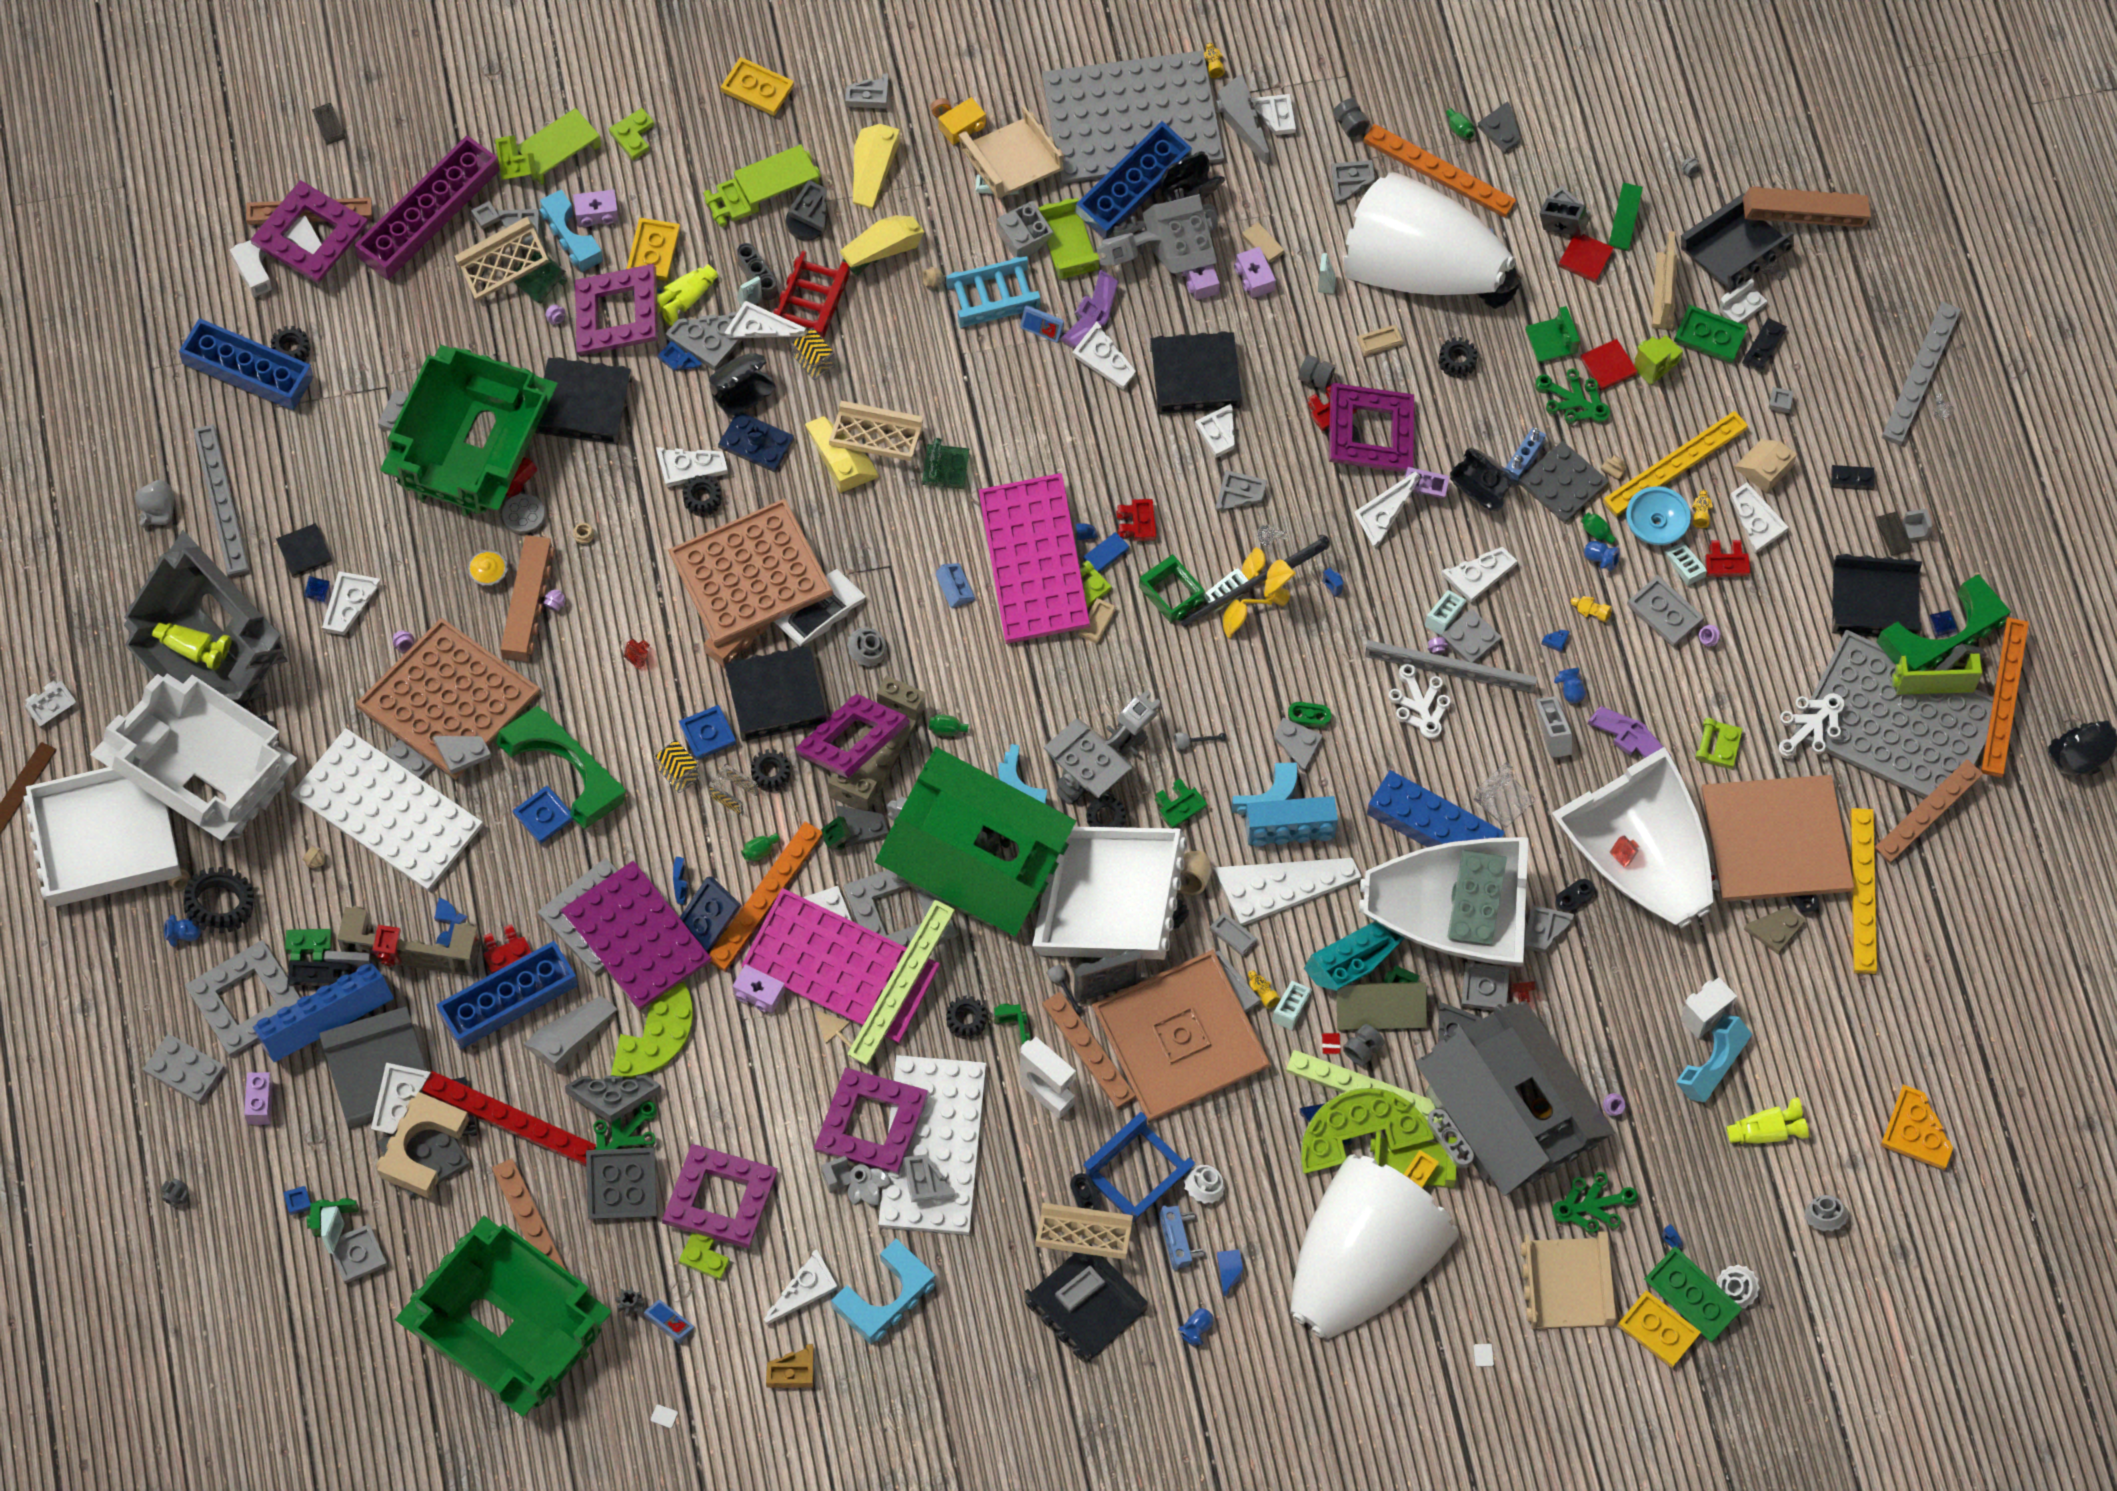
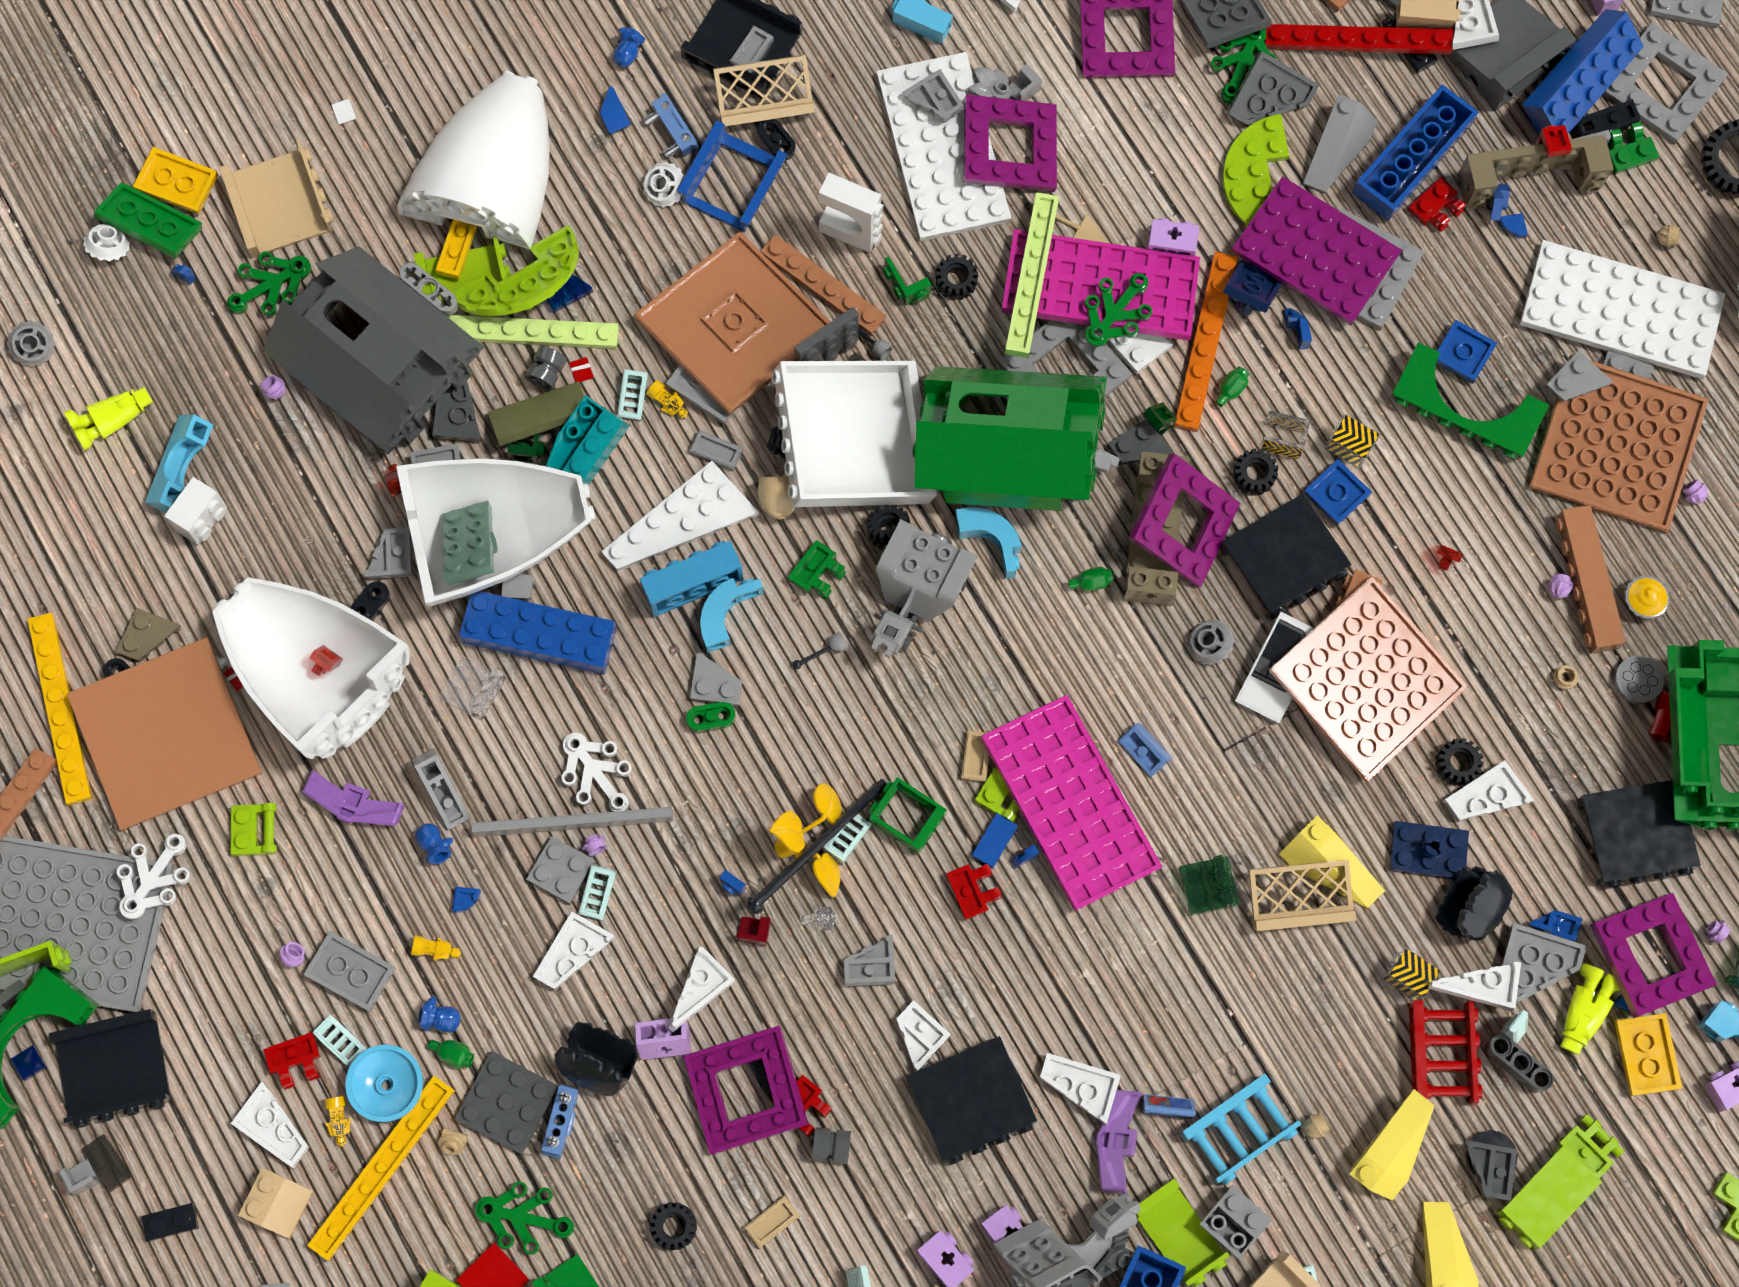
camera: 160 degrees right, 10 degrees up
(840, 926) = (1115, 312): none -> green plant
(1336, 542) = (754, 930): none -> dark red panel

